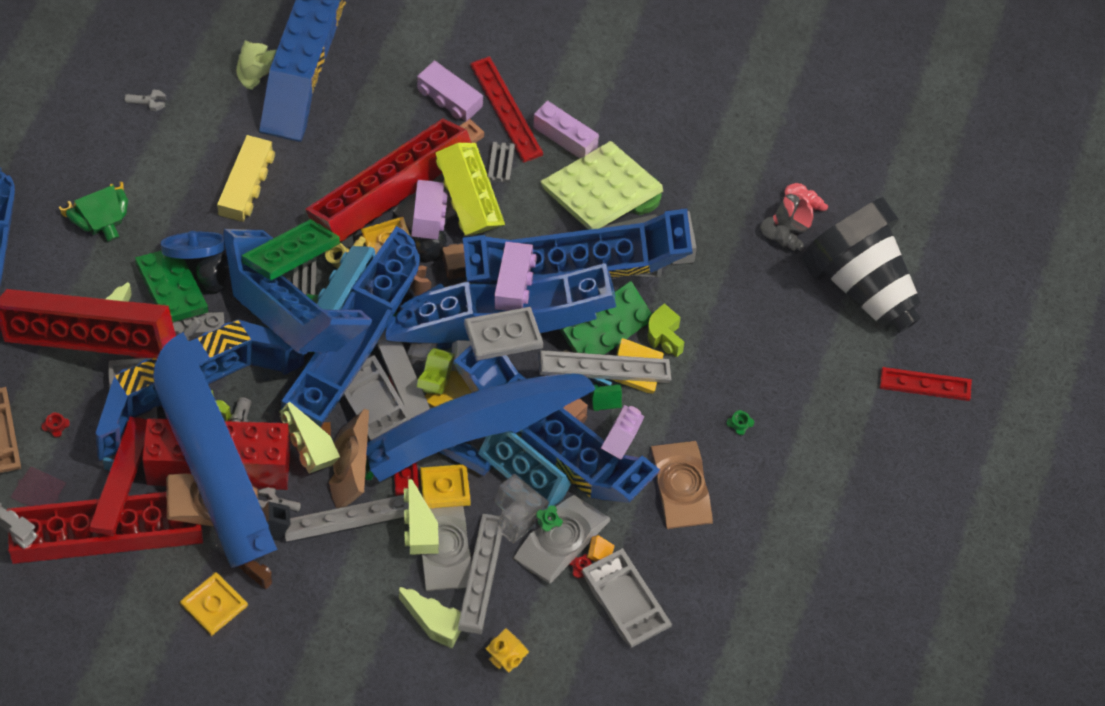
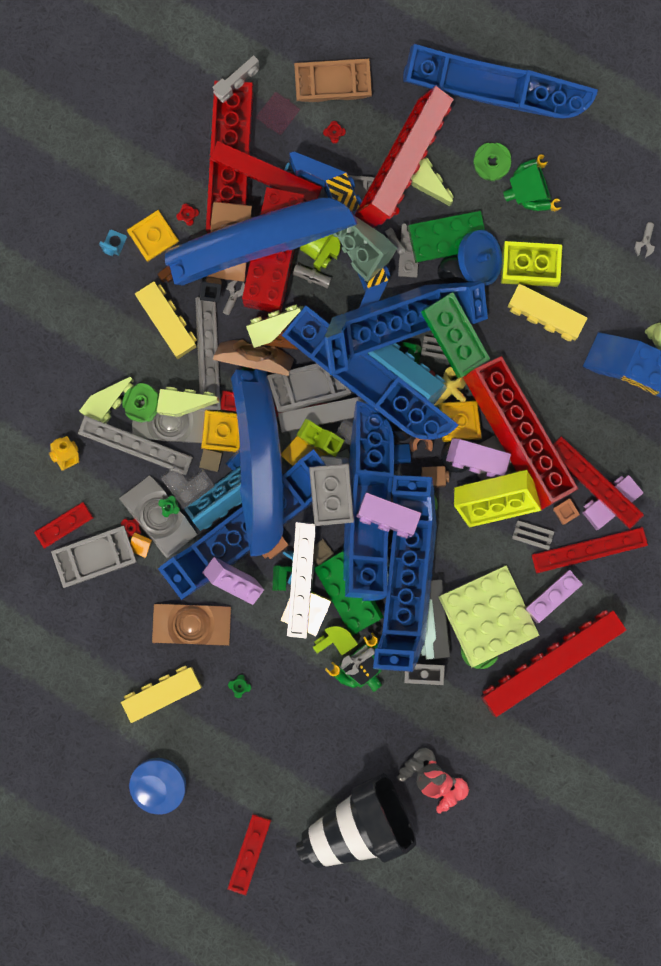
camera: 105 degrees right, 25 degrees up
(73, 267) = (492, 151): none -> bright green plate
(179, 562) = (188, 219): none -> red plate
(192, 197) = (531, 264): none -> neon yellow brick
(211, 335) = (366, 248): none -> sand green wedge
(239, 643) = (108, 248): none -> dark azure bracket
(319, 567) = (165, 319): none -> light yellow brick
(423, 560) = (131, 405): none -> bright green plate
(435, 99) = (597, 484): none -> red tile
(482, 494) = (210, 460): none -> dark tan tile
(594, 642) = (63, 525): none -> red tile
(640, 118) = (553, 663): none -> red brick
(685, 299) = (358, 660): none -> light grey bar
(686, 299) = (366, 673): none -> torso
(771, 498) = (162, 694): none -> light yellow brick
(877, 484) = (157, 786): none -> blue piece

